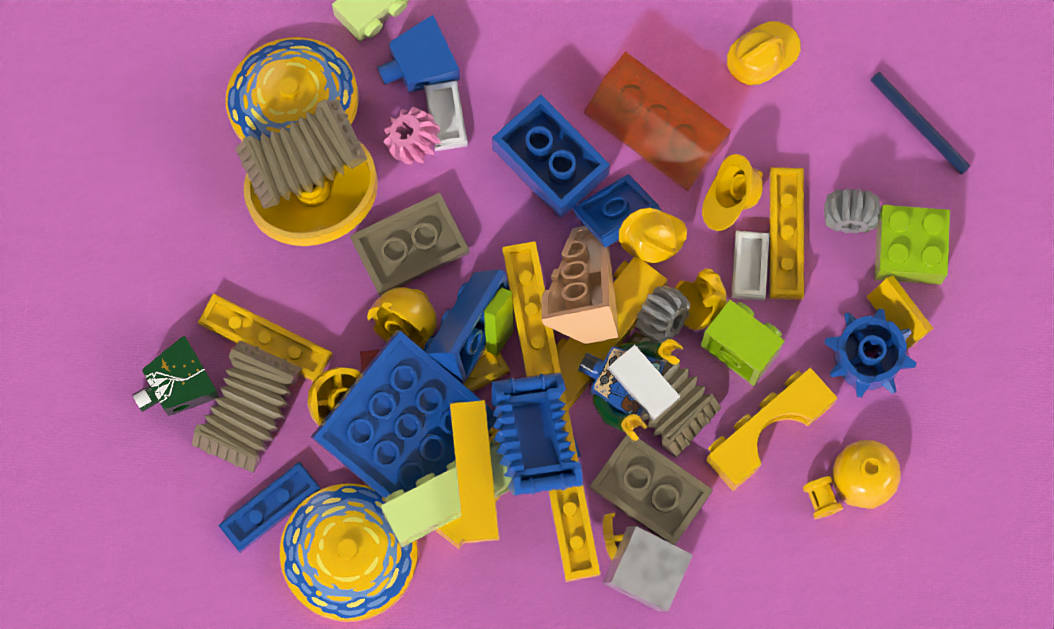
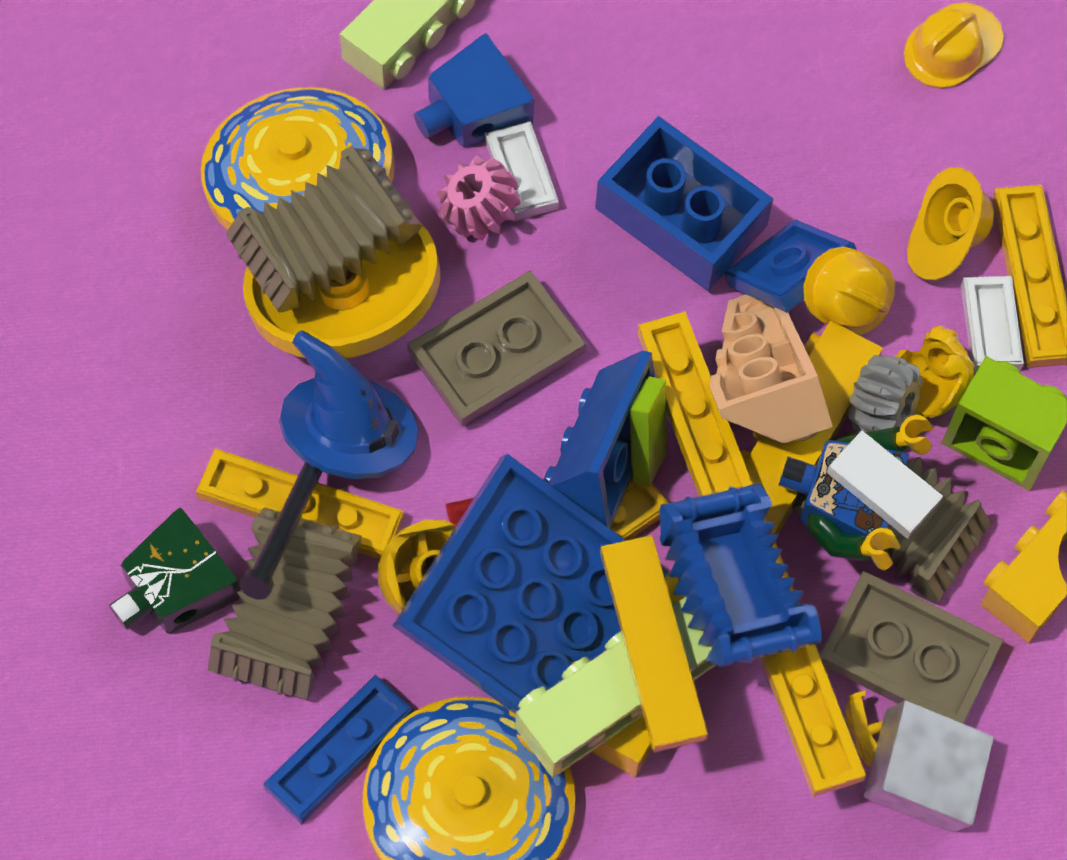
camera: 10 degrees left, 10 degrees down
(226, 399) = (258, 582): none -> black bar
(301, 286) = (344, 419): none -> blue piece
(404, 311) = (498, 430): yellow cylinder -> none
(657, 121) = (825, 143): clear orange slope -> none

